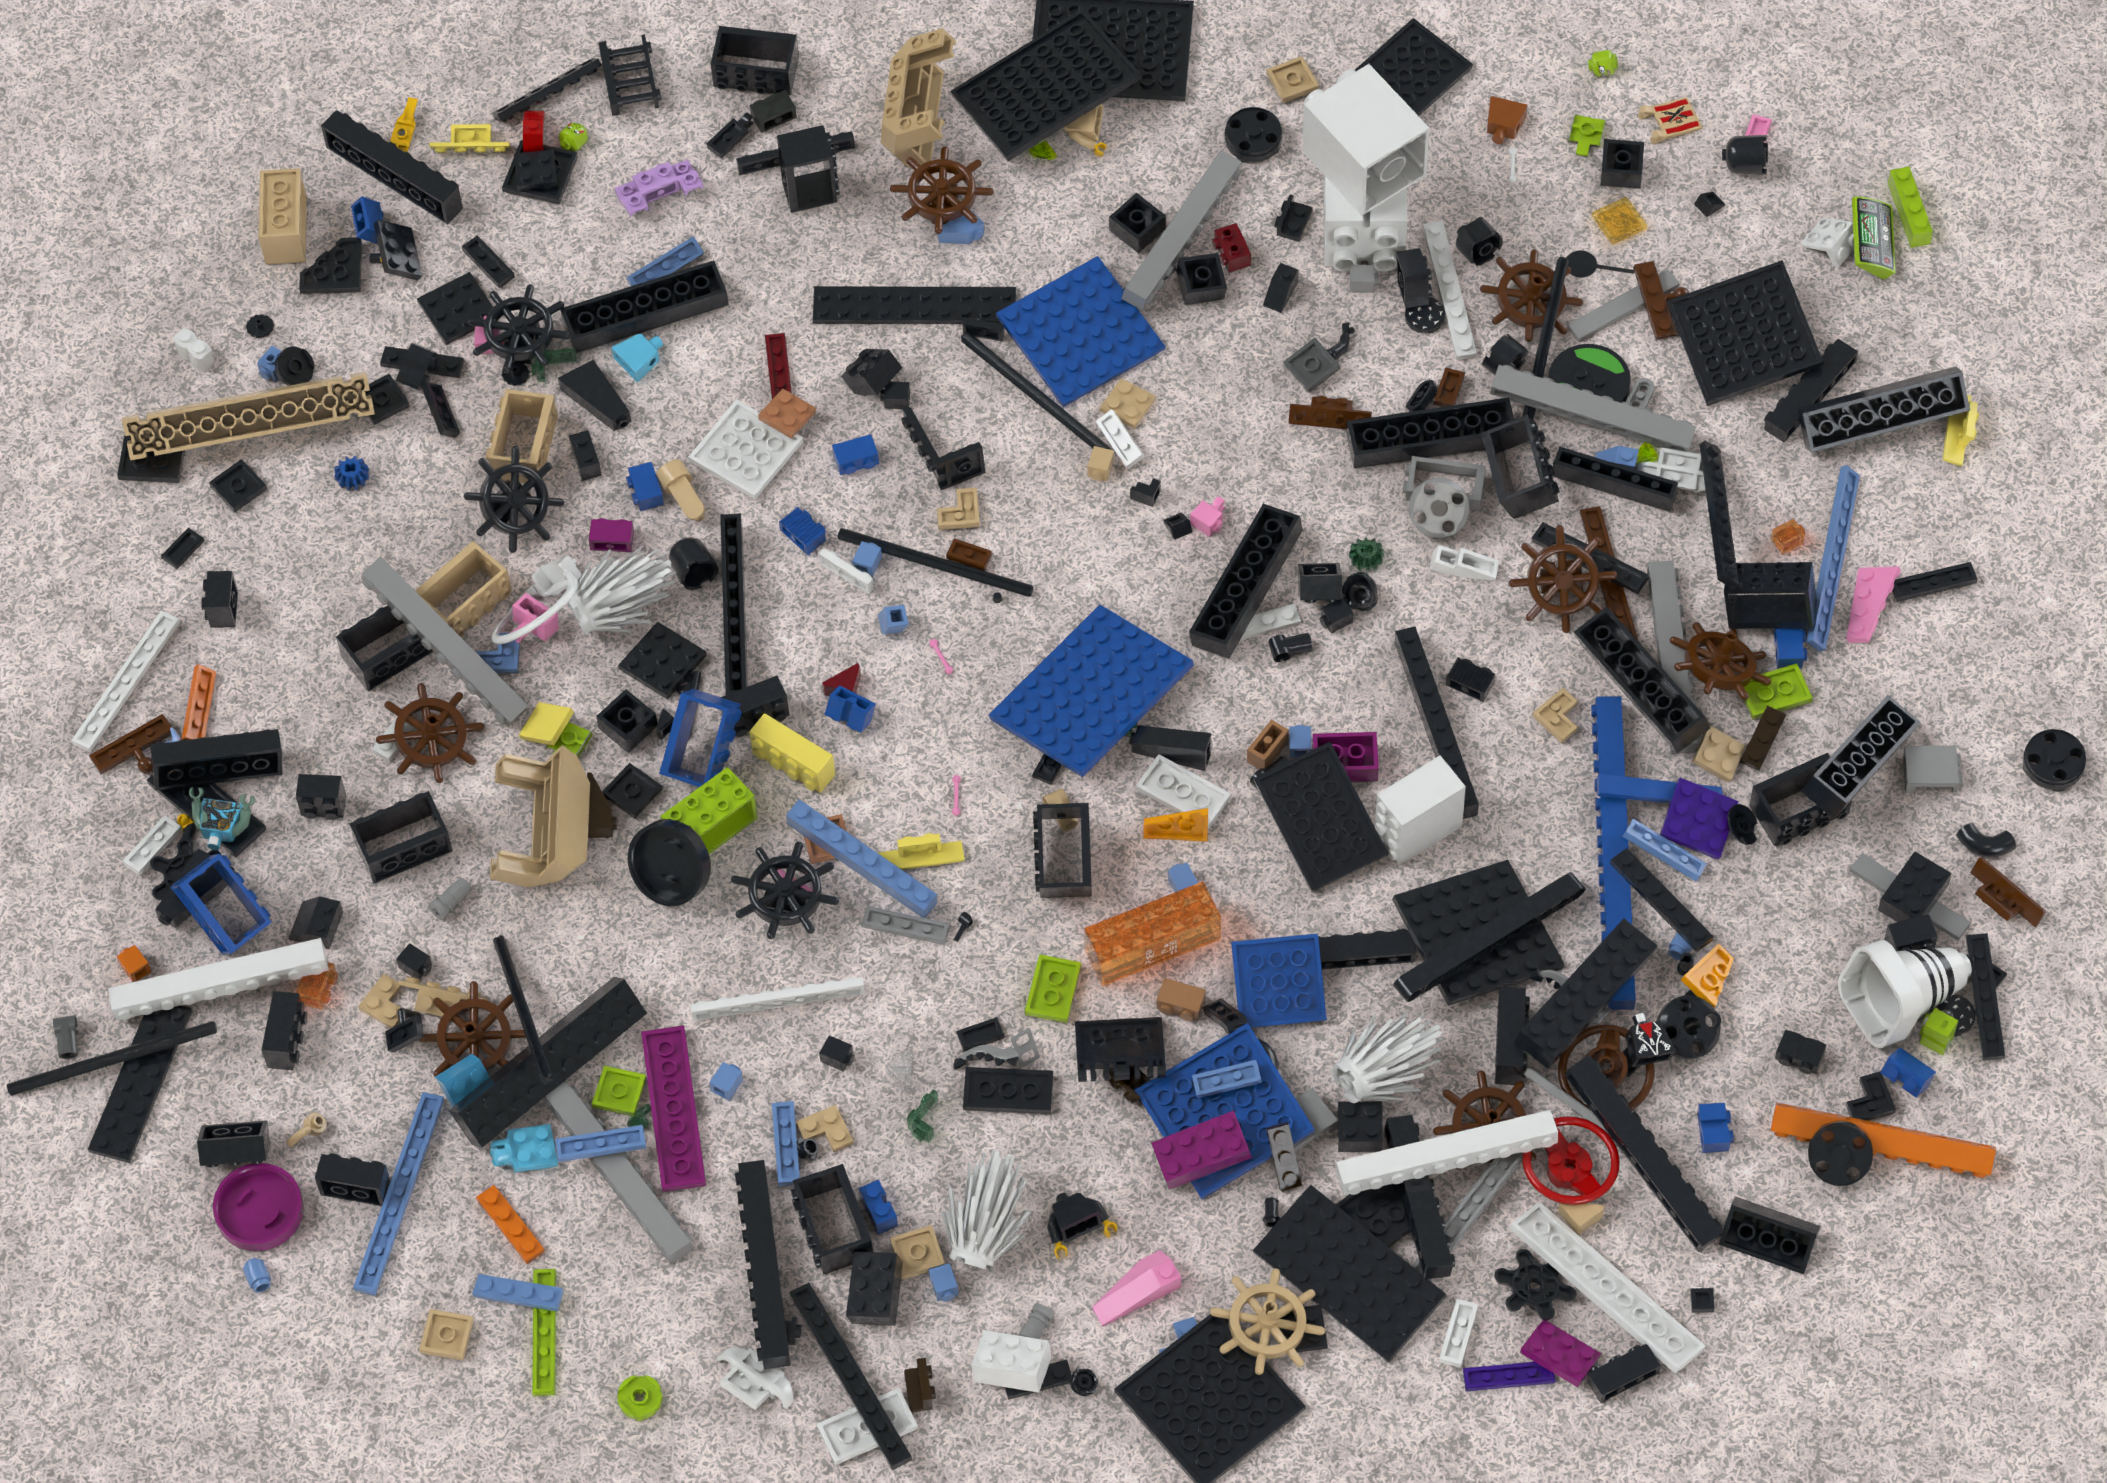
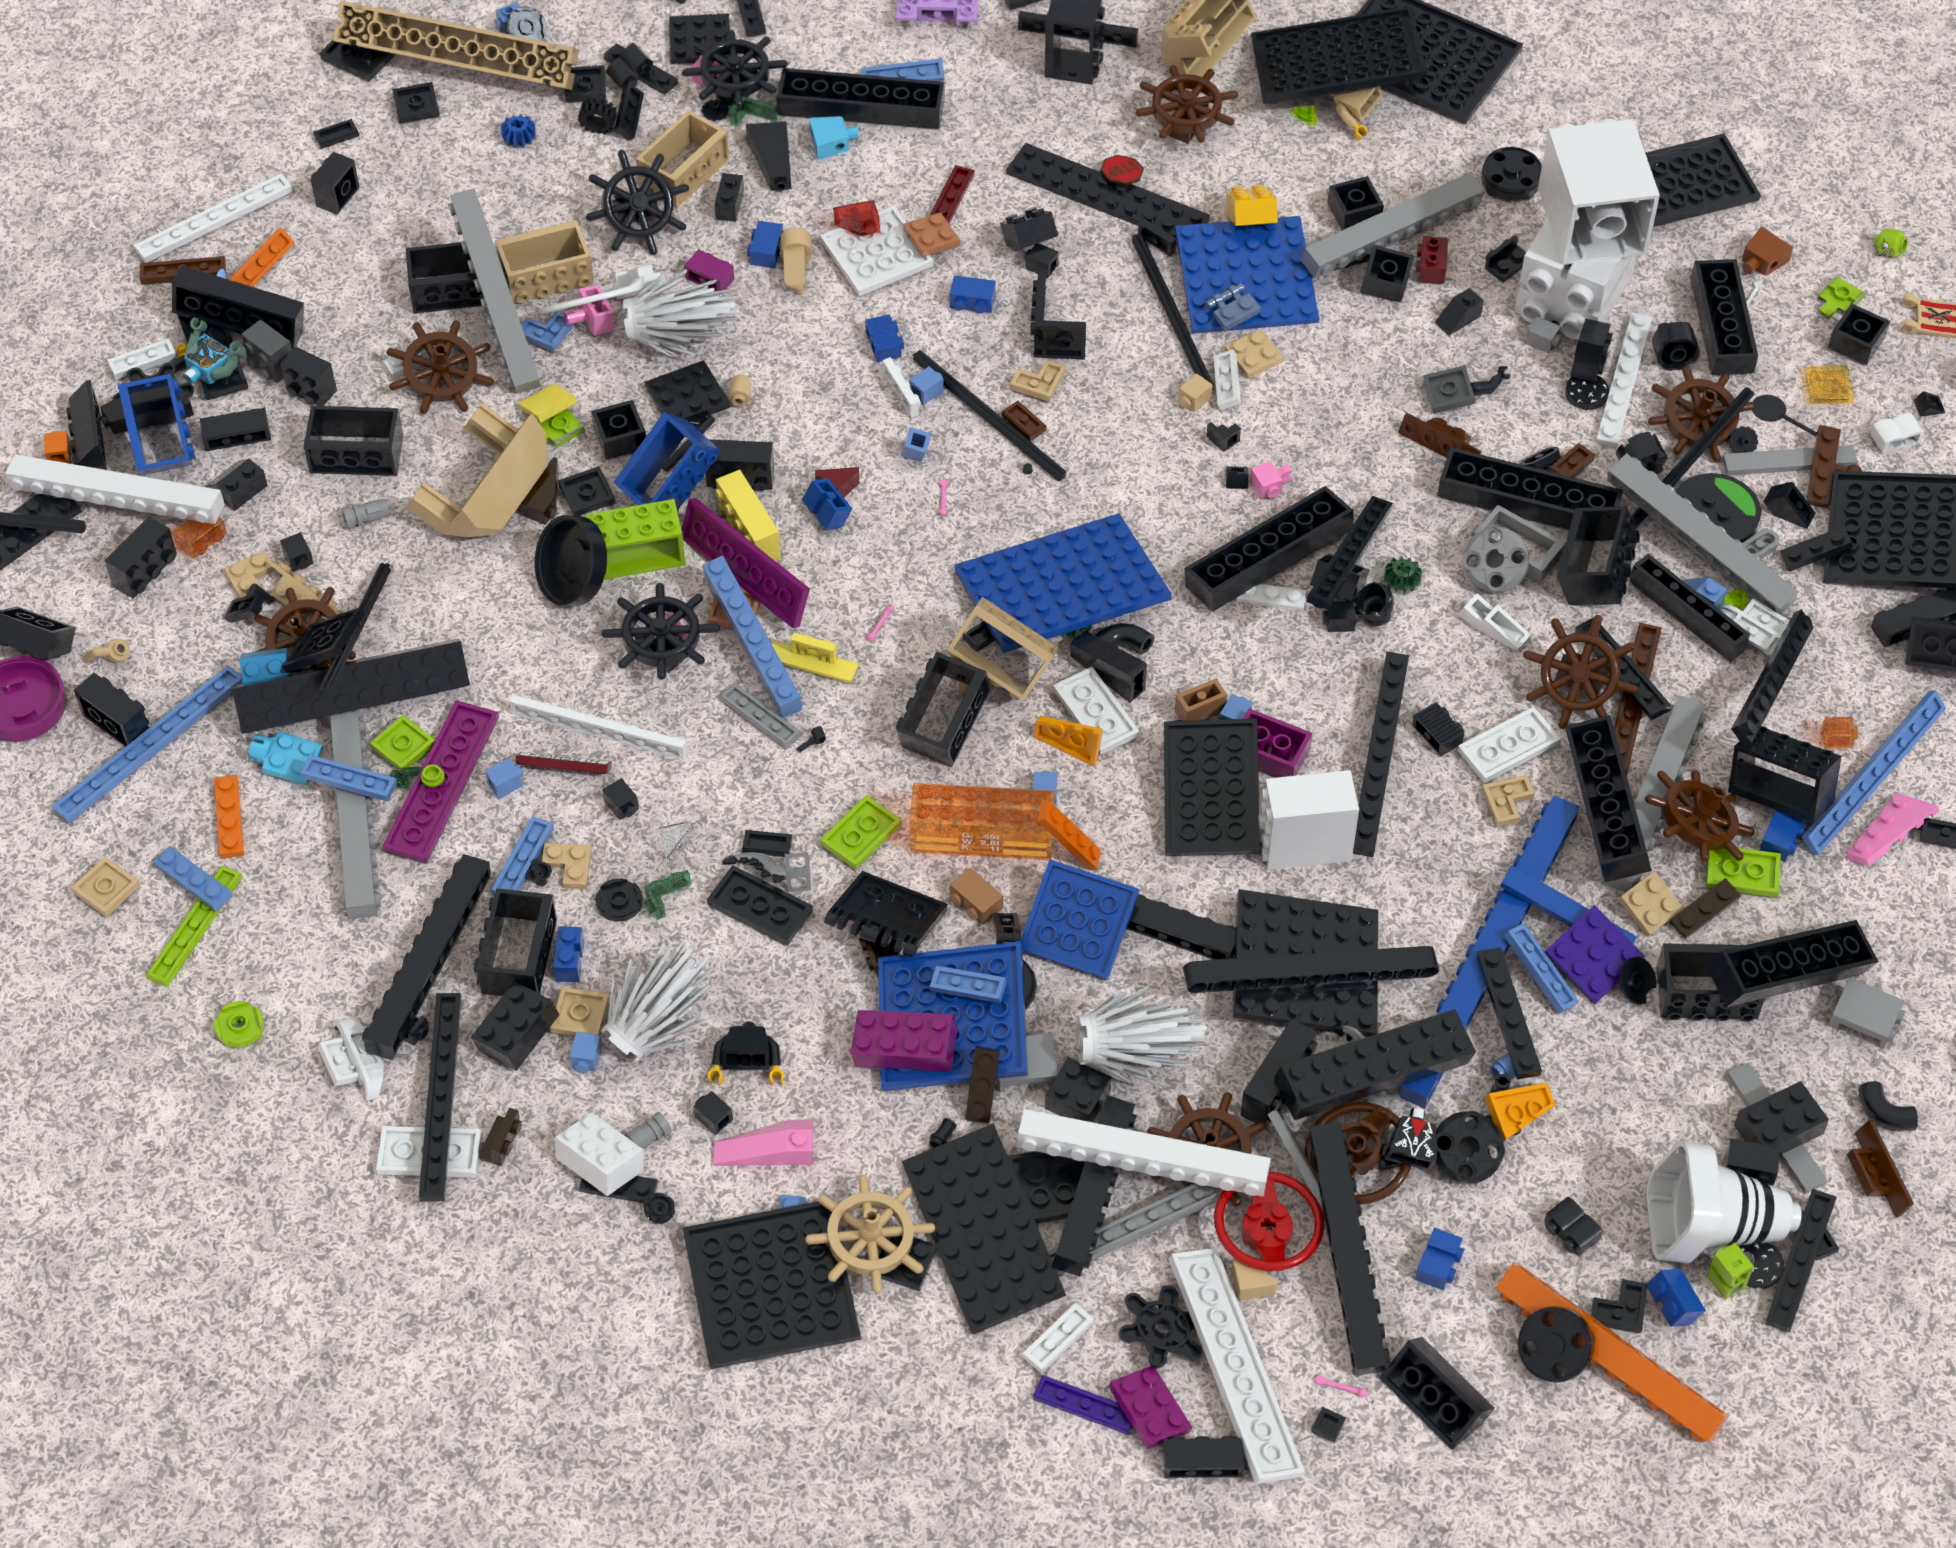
camera: 25 degrees right, 5 degrees down
(151, 935) = (86, 428): none -> black slope
(269, 786) = (266, 350): none -> dark grey brick
(283, 873) = (235, 429): none -> black brick
(417, 427) = (598, 107): none -> black tyre
(508, 1033) = (323, 640): none -> black plate
(667, 1108) = (432, 776): none -> lime plate
(692, 563) = (764, 322): black cylinder -> none
(707, 636) = (739, 390): none -> tan brick
(716, 426) = (858, 218): none -> clear red slope
(733, 602) = (781, 369): black brick -> none
(767, 1043) = (563, 762): none -> dark red tile
(829, 797) = (749, 564): none -> magenta plate
(887, 1147) = (621, 906): none -> black tile
(916, 277) = (1122, 170): none -> piece
(961, 231) = (1188, 149): medium blue slope -> none
(1053, 265) = (1251, 205): none -> yellow brick
(1077, 1283) = (713, 1112): none -> black brick
(1088, 754) = (1014, 630): none -> tan hose
(1093, 373) = (1235, 312): none -> sand blue plate
(1171, 712) = (1127, 635): none -> black cylinder
(1233, 913) = (1069, 835): none -> orange plate
(1285, 647) = (1273, 624): black piece -> none
(1322, 557) = (1349, 553): none -> black plate
(1503, 195) = (1724, 317): none -> black brick
(1533, 667) = (1509, 744): none -> white plate
(1578, 305) = (1743, 440): none -> black piece
(1645, 348) = (1789, 504): none -> black slope
(1675, 1268) = (1320, 1380): none -> bright pink hinge
(1688, 378) = (1816, 548): none -> black plate
(1697, 242) = (1896, 432): none -> white brick

